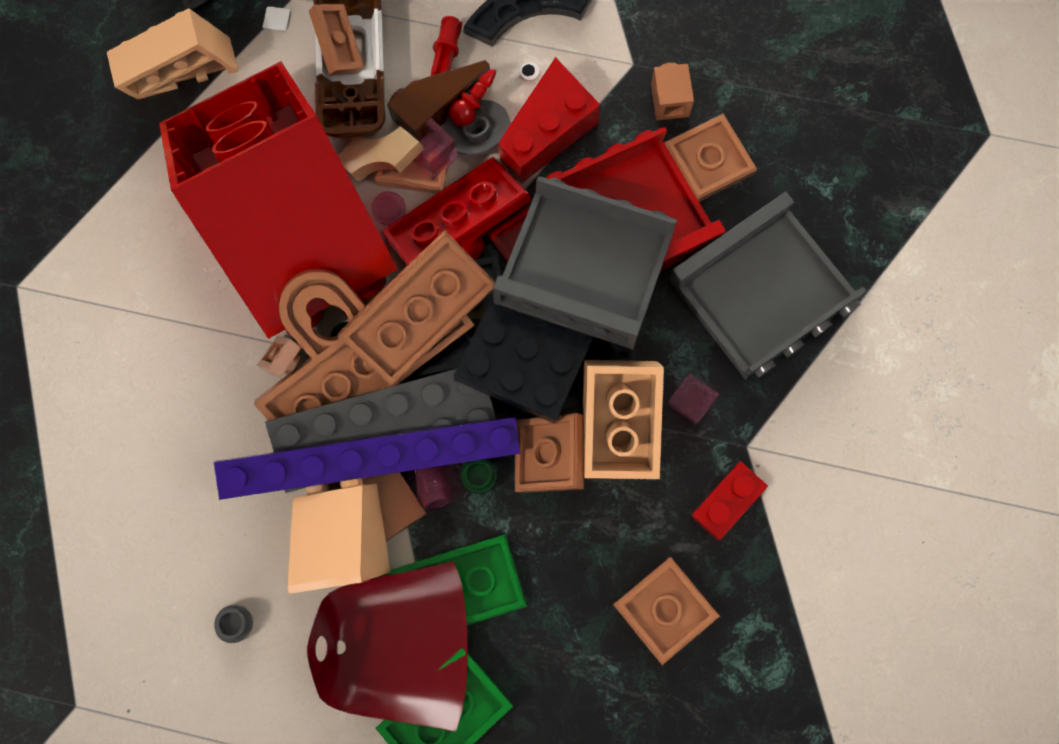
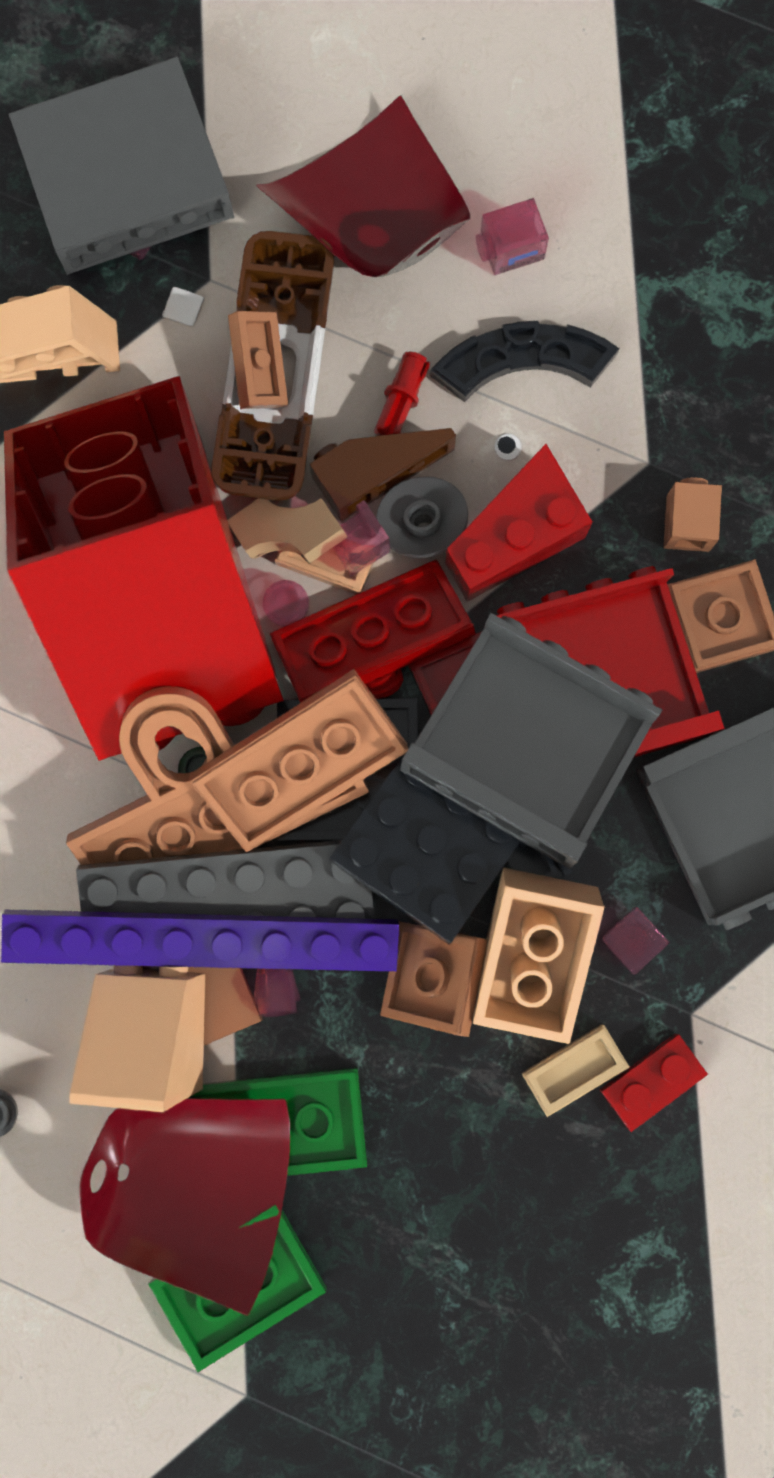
camera: 10 degrees right, 5 degrees up
(280, 357) = (109, 785): nougat plate -> none
(463, 110) = (409, 490): red bar -> none
(478, 476) = (337, 987): dark green plate -> none
(666, 610) = (543, 1207): nougat tile -> none
(668, 503) = (575, 1070): none -> tan tile

